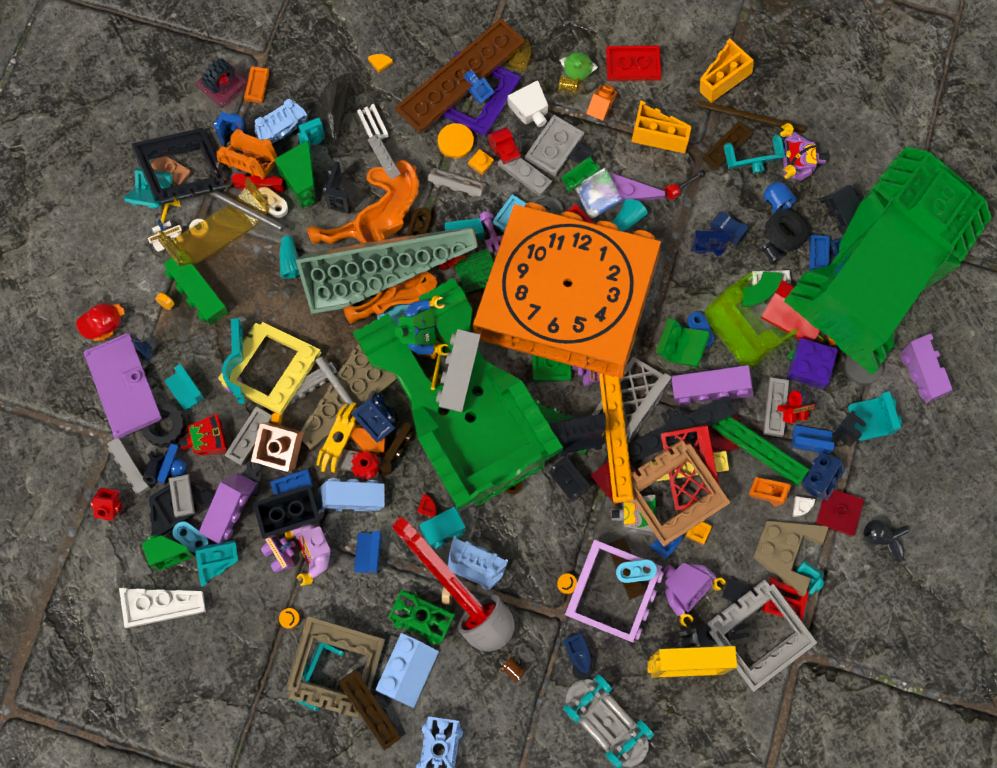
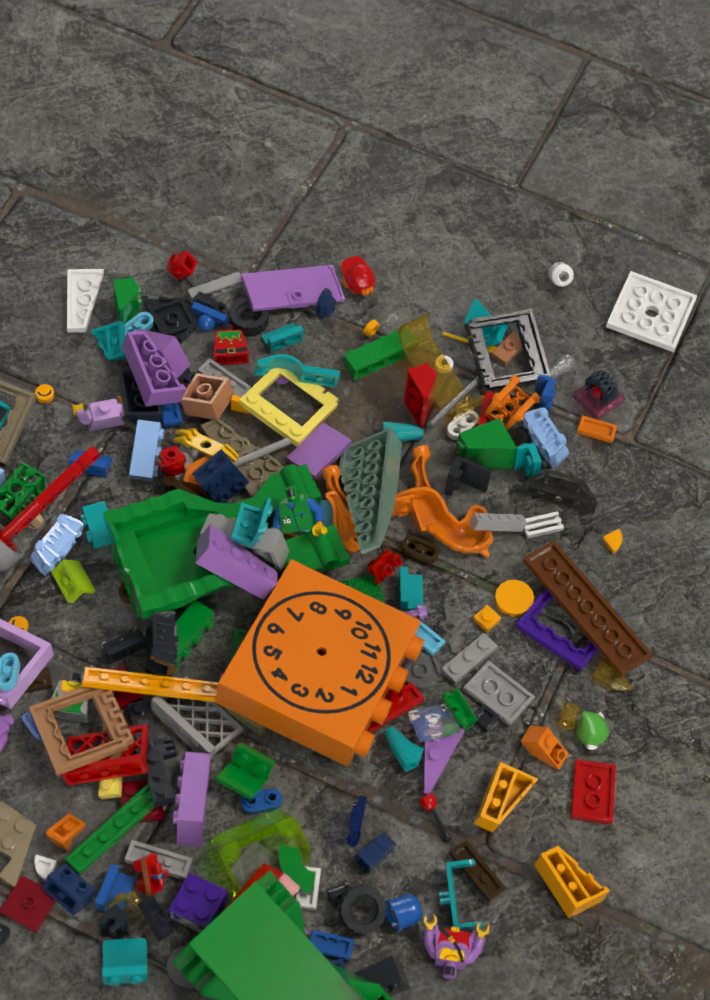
camera: 95 degrees right, 15 degrees down
(75, 126) = (561, 274): none -> white head
(106, 24) = (645, 294): none -> white piece
(173, 232) = (445, 332): white hips -> none
(182, 496) = (176, 320): light grey tile -> none
(187, 118) = (562, 365): none -> clear cone
(251, 236) = (420, 392): none -> red slope
(265, 501) = (150, 371): none -> medium lavender wedge
(282, 552) = (106, 390): medium lavender hips -> none
(311, 382) = (269, 437): light grey piece -> none
(321, 331) = (319, 449): none -> medium lavender tile
(456, 182) = (464, 590): light grey plate -> none
(457, 353) = (251, 523): none -> teal bracket
(480, 88) = (567, 620): blue plate -> none
(491, 375) = (234, 563): none -> medium lavender wedge
(503, 145) = (502, 636): red brick -> none
(508, 540) = (72, 580): none -> lime panel
(529, 104) = (548, 673): white torso -> none
(699, 533) = (39, 758): light orange tile -> none
(749, 116) = (498, 942): dark brown bar -> none
(822, 428) = (120, 898): none -> clear yellow bracket
(833, 397) = (155, 917): none -> black plate

